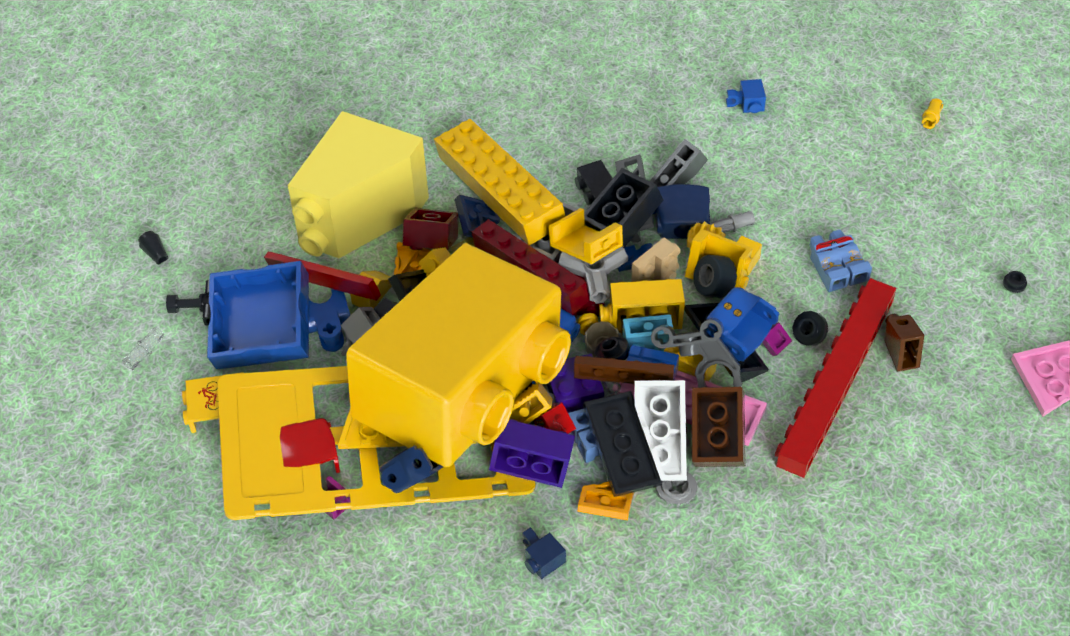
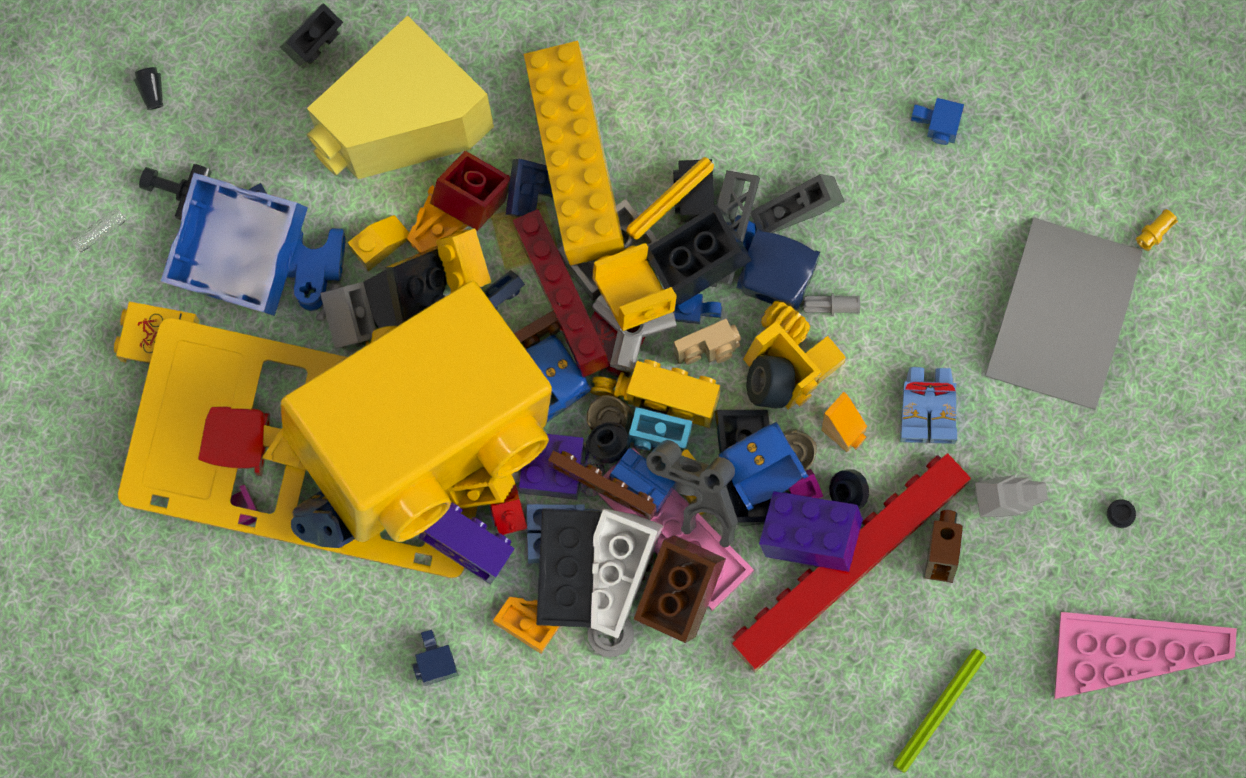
camera: 25 degrees right, 25 degrees up
(268, 177) = (316, 30): none -> black brick
(332, 277) = (322, 216): red tile -> none
(583, 184) = (670, 198): none -> yellow axle
(784, 281) = (844, 424): none -> light orange slope
(799, 356) = (811, 531): none -> dark purple brick
(901, 181) = (1064, 313): none -> light grey slope
(930, 290) = (1009, 496): none -> light grey connector
(961, 453) = (939, 710): none -> lime axle

